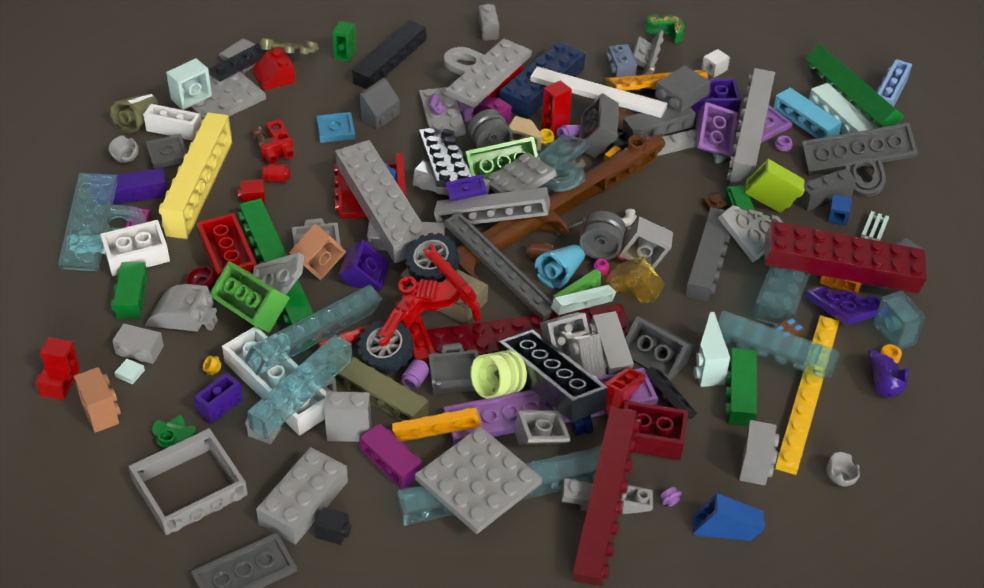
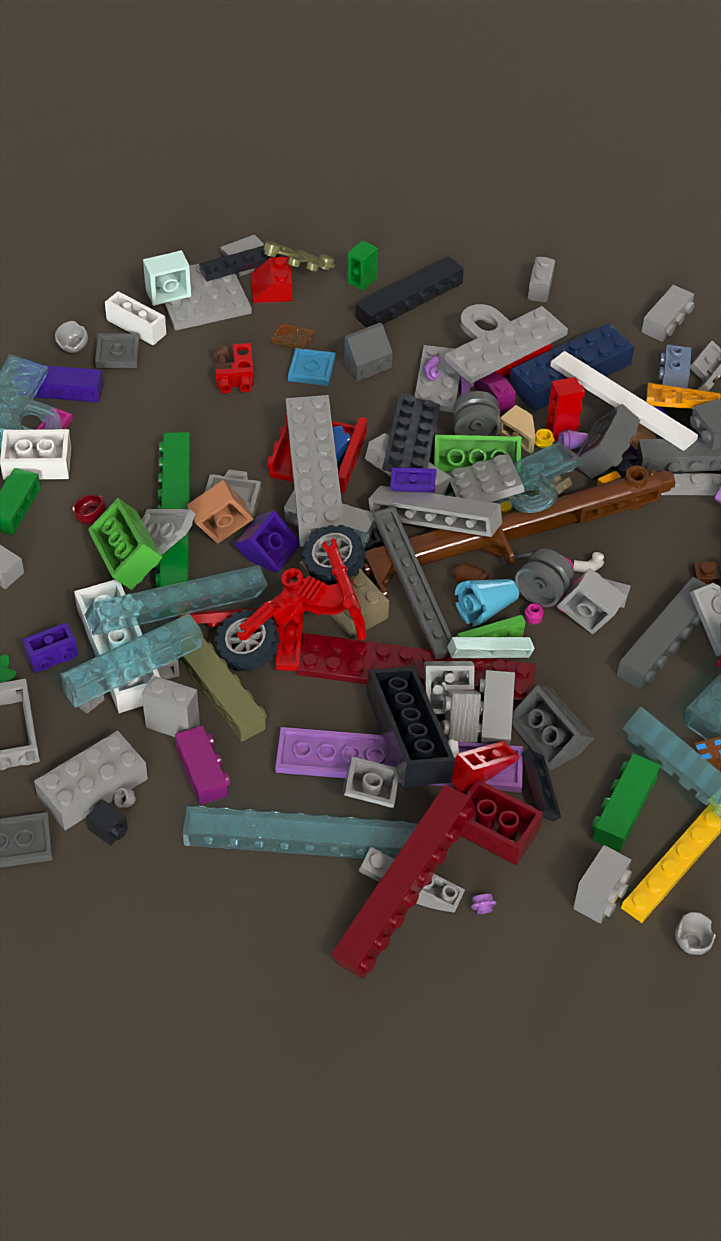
camera: 20 degrees right, 5 degrees up
(129, 112) = (94, 292): olive cone -> none
(184, 309) = (58, 538): light grey piece -> none
(196, 176) = (133, 387): light yellow brick -> none
(212, 365) = (61, 609): yellow plate -> none
(225, 242) = (130, 475): red brick -> none
(251, 191) = (186, 421): red brick -> none
(276, 173) = (222, 406): red brick -> none
(310, 108) = (293, 336): none -> clear orange piece
(336, 497) = (124, 793): none -> light grey hinge
(415, 374) = (267, 681): medium lavender brick -> none
(436, 424) = (262, 745): light orange plate -> none
(451, 370) = (312, 689): dark grey piece -> none
(478, 479) = (277, 820): light grey plate -> none
(498, 374) = (351, 707): yellowish green wheel -> none
(582, 425) = (423, 793): clear blue wheel -> none
(596, 25) = (668, 313): none -> light grey brick
(638, 277) = (564, 639): clear yellow brick -> none
(713, 356) = (601, 759): light aqua slope -> none
(728, 519) = (533, 950): blue slope -> none

